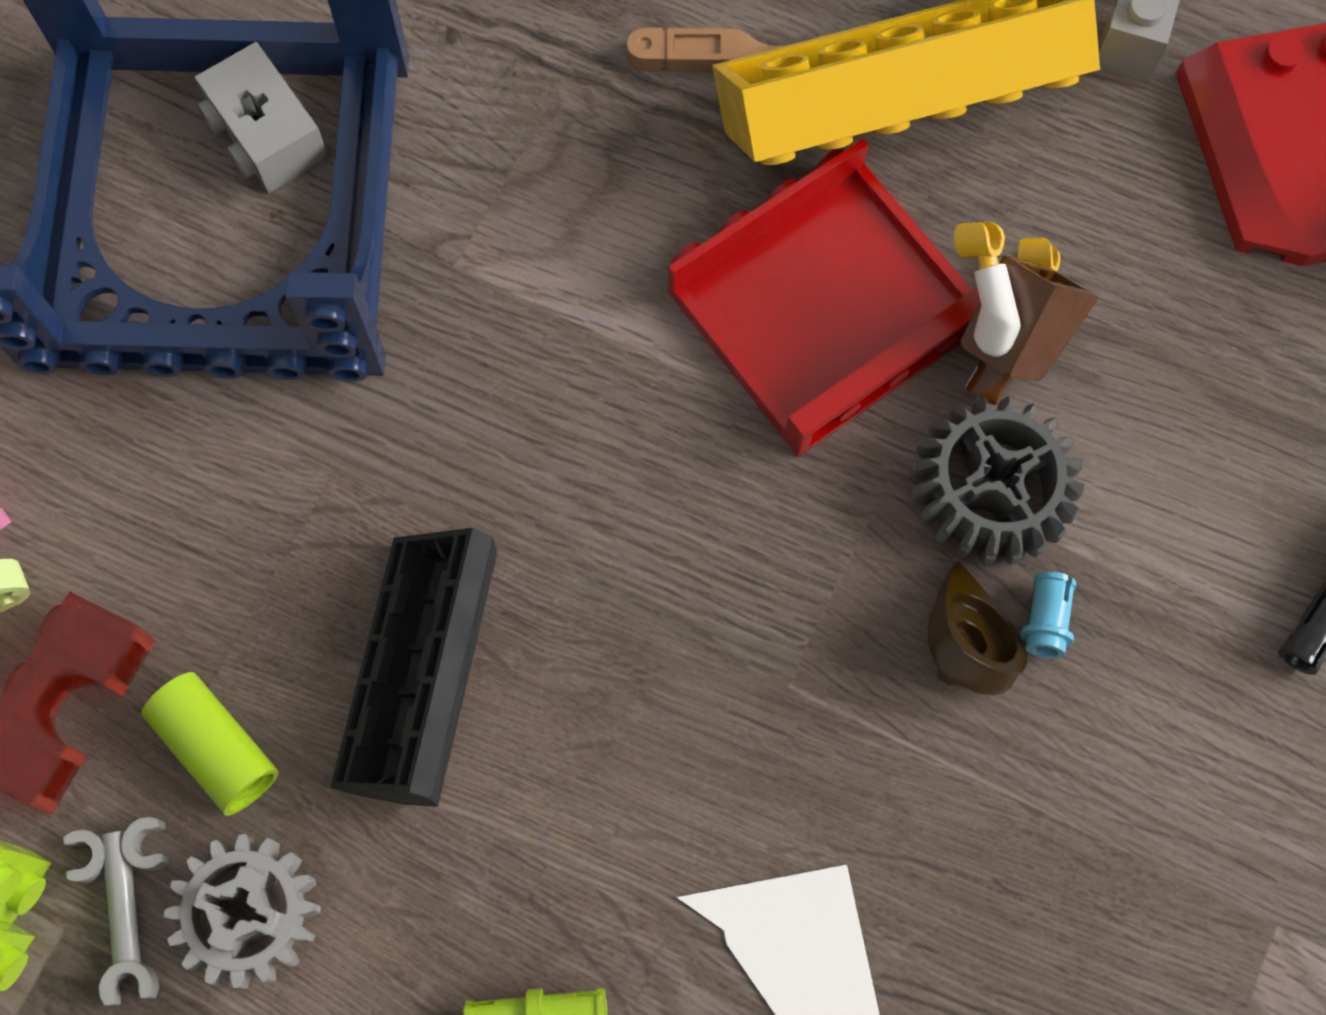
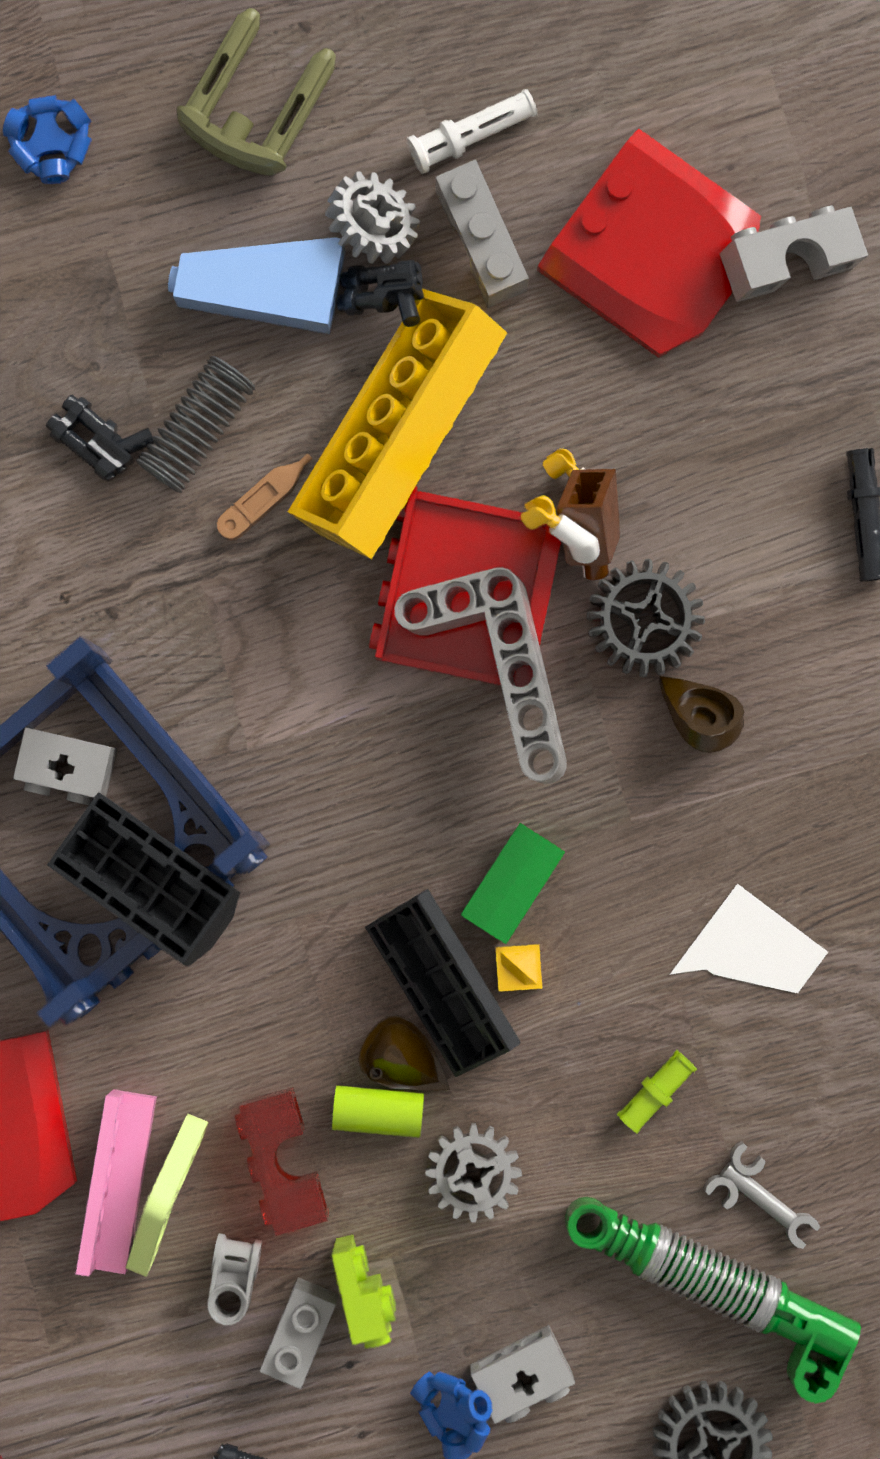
camera: 40 degrees left, 15 degrees up
(113, 857) = (385, 1202): light grey bar -> none
(213, 275) = (146, 881): none -> black piece
(295, 710) = (401, 1056): none -> dark brown piece
(514, 731) = (518, 967): none -> yellow tile
(593, 629) = (512, 883): none -> green piece
(811, 375) = (507, 656): none -> light grey beam
(1050, 616) = (732, 667): medium azure pin -> none

